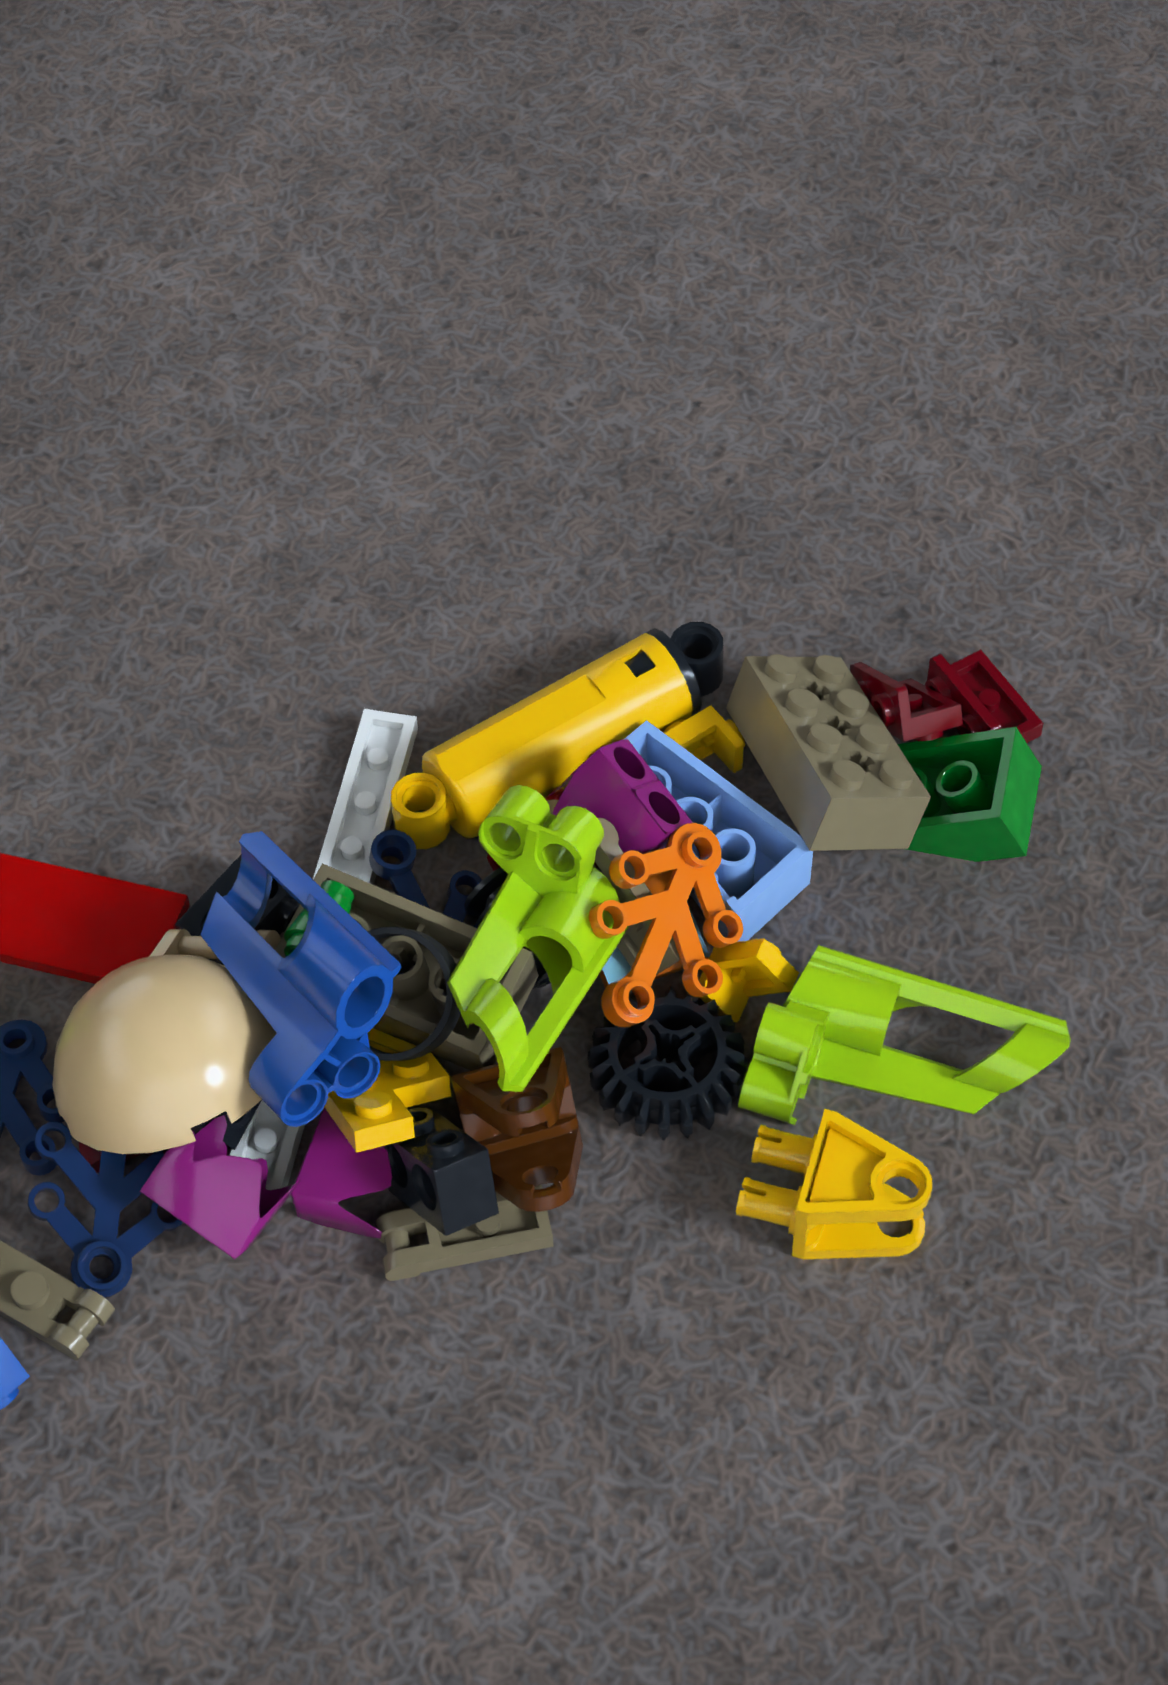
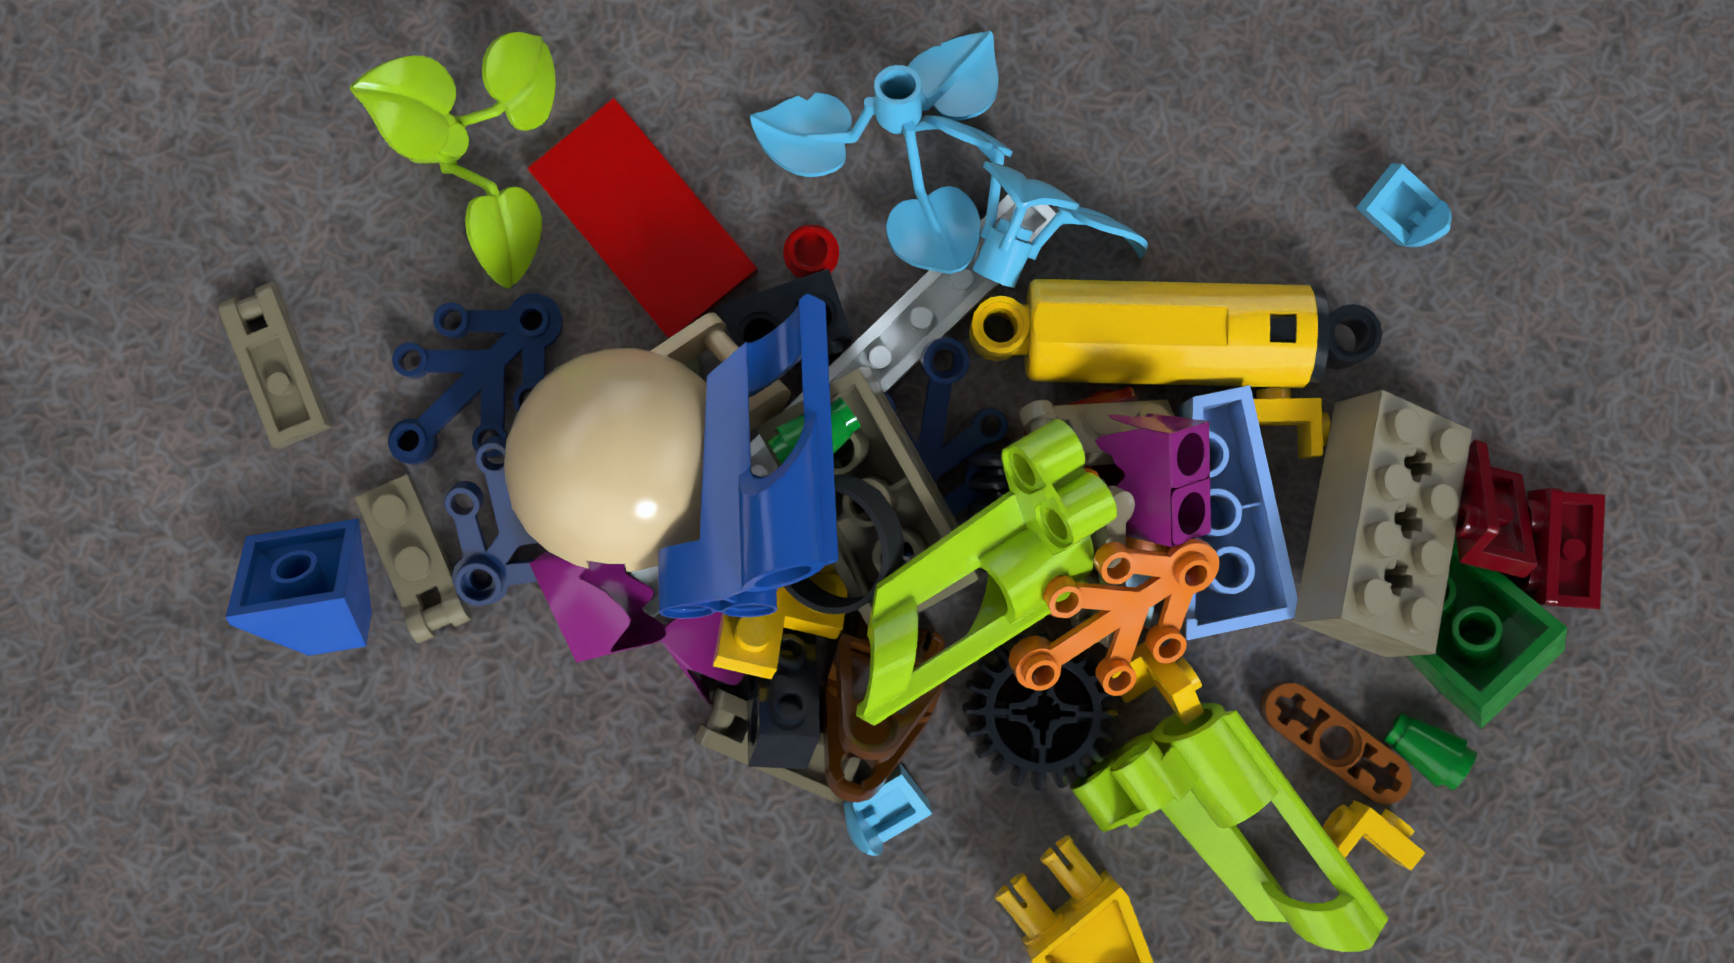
camera: 30 degrees right, 30 degrees up
(218, 855) = (810, 251): none -> red plate
(229, 691) = (959, 82): none -> medium azure plant
(383, 744) = (1008, 244): none -> medium azure plant
(592, 1218) = (886, 814): none -> medium azure plate
(677, 563) = (1405, 208): none -> medium azure plate
(938, 925) = (1378, 754): none -> dark orange beam
(1002, 897) = (1431, 751): none -> green cone
(1012, 976) = (1384, 831): none -> yellow bracket

